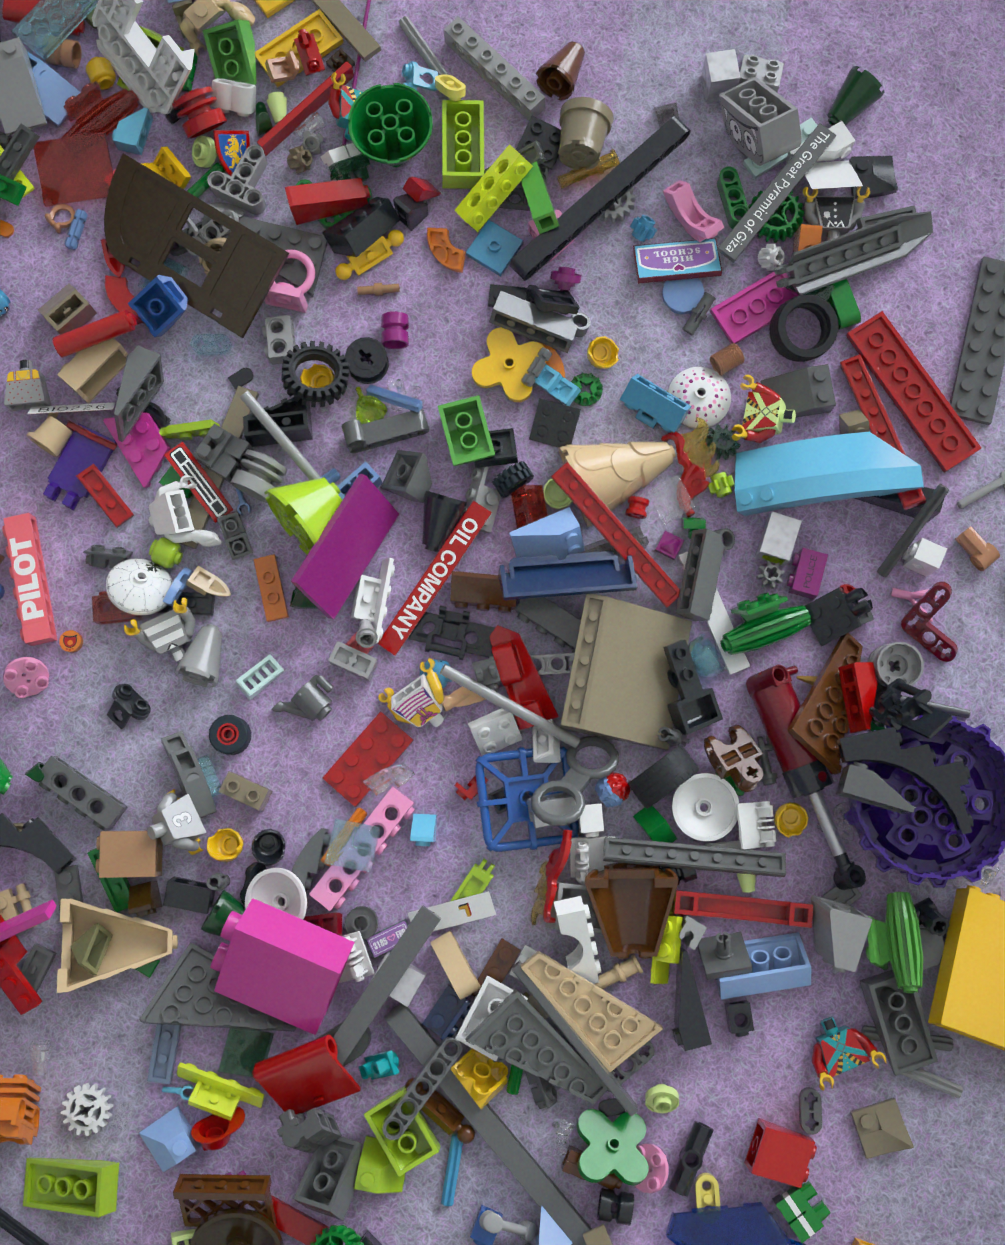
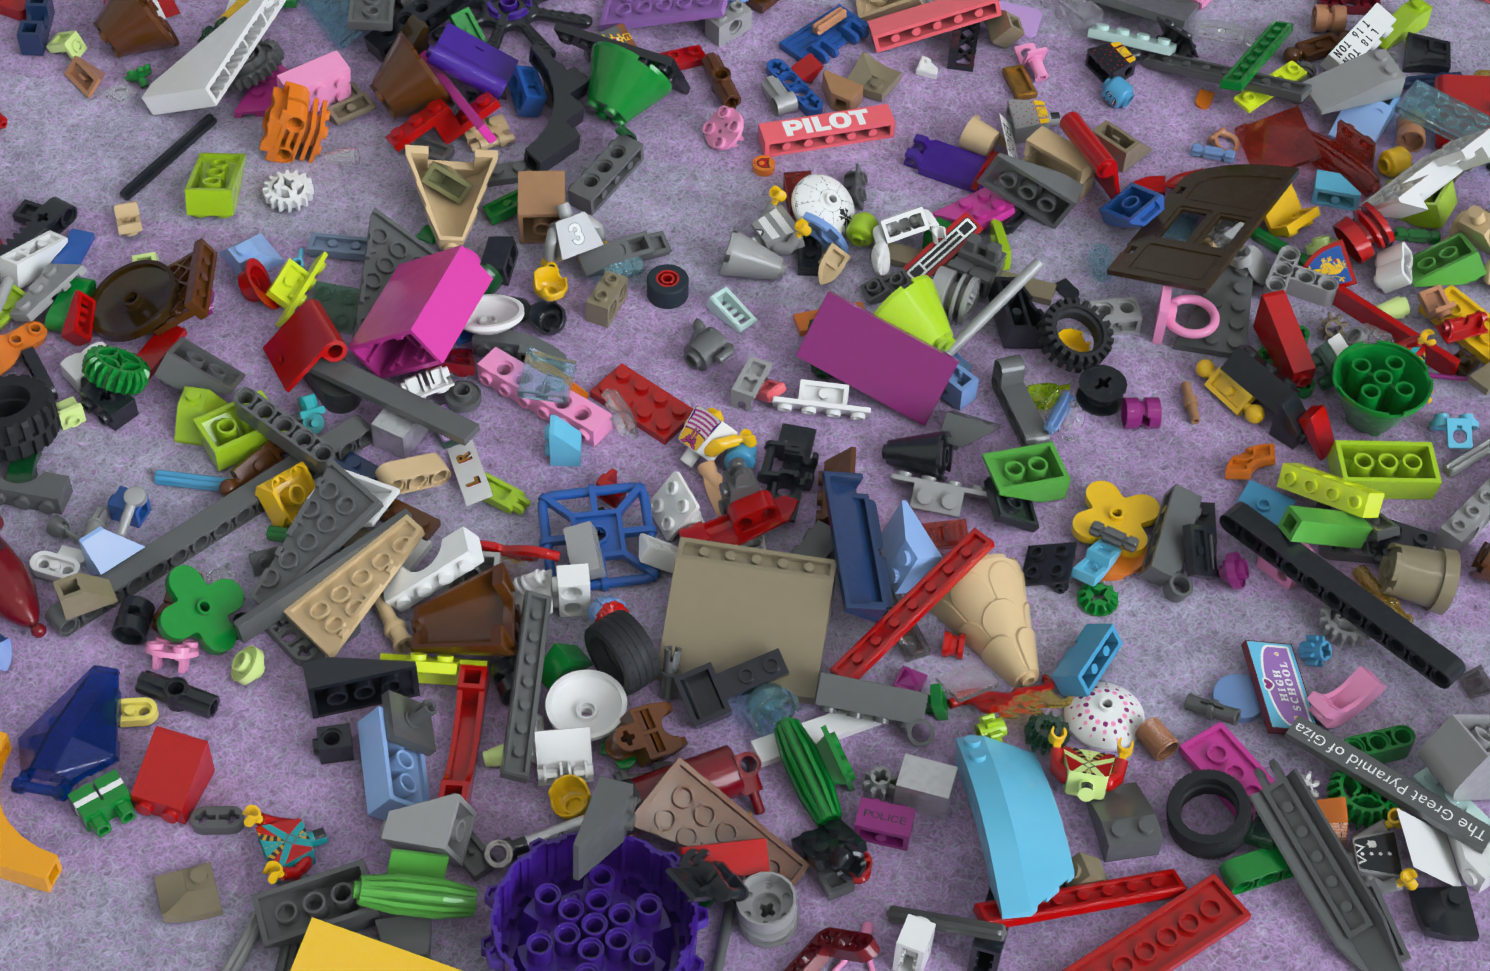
camera: 80 degrees right, 30 degrees down
(105, 495) = (920, 182): red tile -> none
(130, 705) = (698, 209): black bracket -> none
(144, 899) = (495, 219): dark brown slope -> none
(216, 879) = (511, 274): dark grey pin -> none
(263, 122) = (1367, 286): dark green helmet -> none
(308, 1133) = (248, 350): dark grey hips -> none
(366, 634) = (781, 386): light grey cone -> none
(434, 578) = (863, 455): red sticker -> none
(450, 87) = (1450, 450): light yellow plate -> none
(509, 706) = (704, 499): light grey piece -> none
(512, 478) = (976, 514): black bush -> none
(574, 781) = (616, 568): dark grey bar -> none
(602, 352) = (1144, 608): yellow hair -> none
(692, 930) = (439, 685): light grey hinge -> none
(918, 761) = (638, 885): black arch -> none
(930, 917) = (445, 942): black piece -> none

